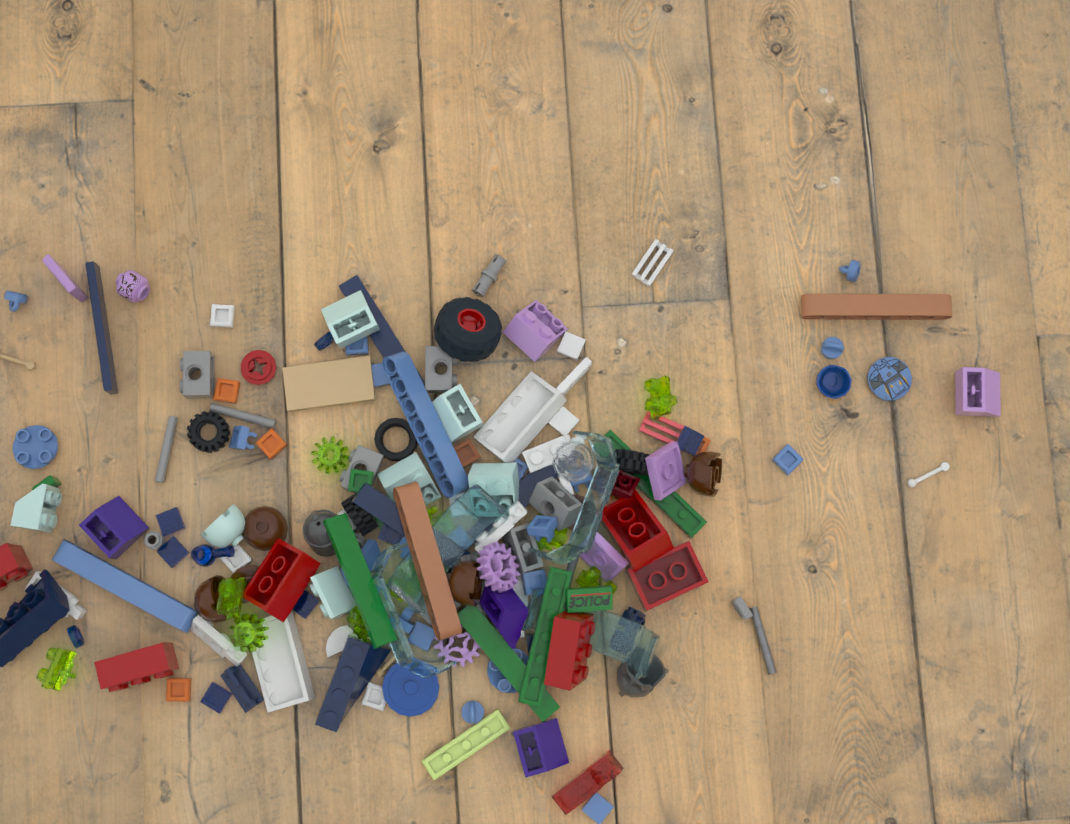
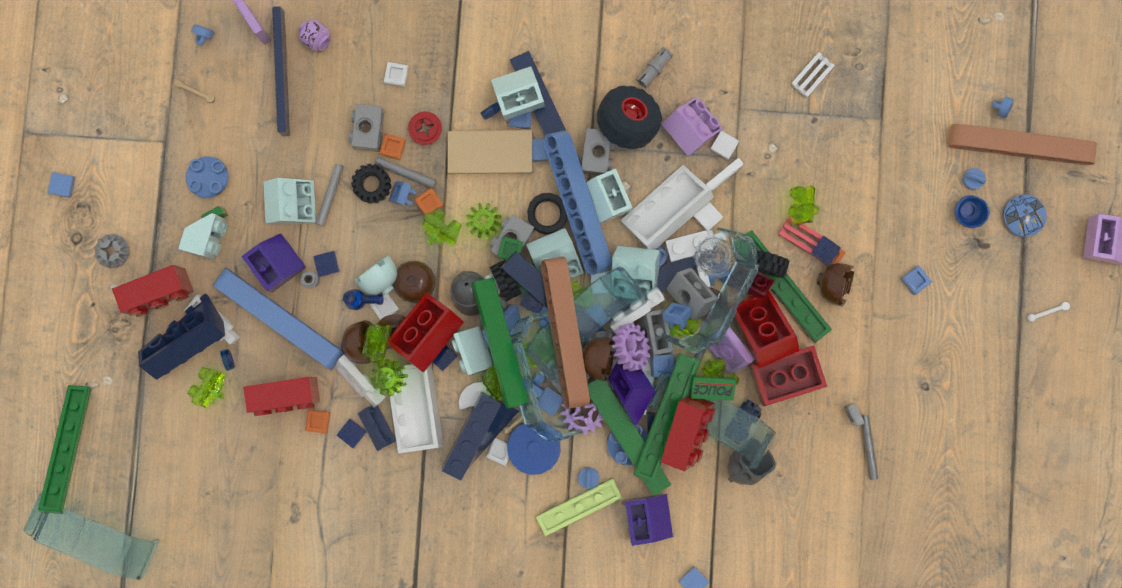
camera: 10 degrees right, 5 degrees up
(124, 461) = (289, 201): none -> light aqua slope
(173, 552) = (325, 292): clear blue tile -> none
(284, 472) = (439, 231): none -> clear neon green hips
(467, 453) = (613, 234): dark orange plate -> none
(587, 782) = (688, 557): clear red slope -> none
(665, 470) = (800, 276): lavender tile -> none

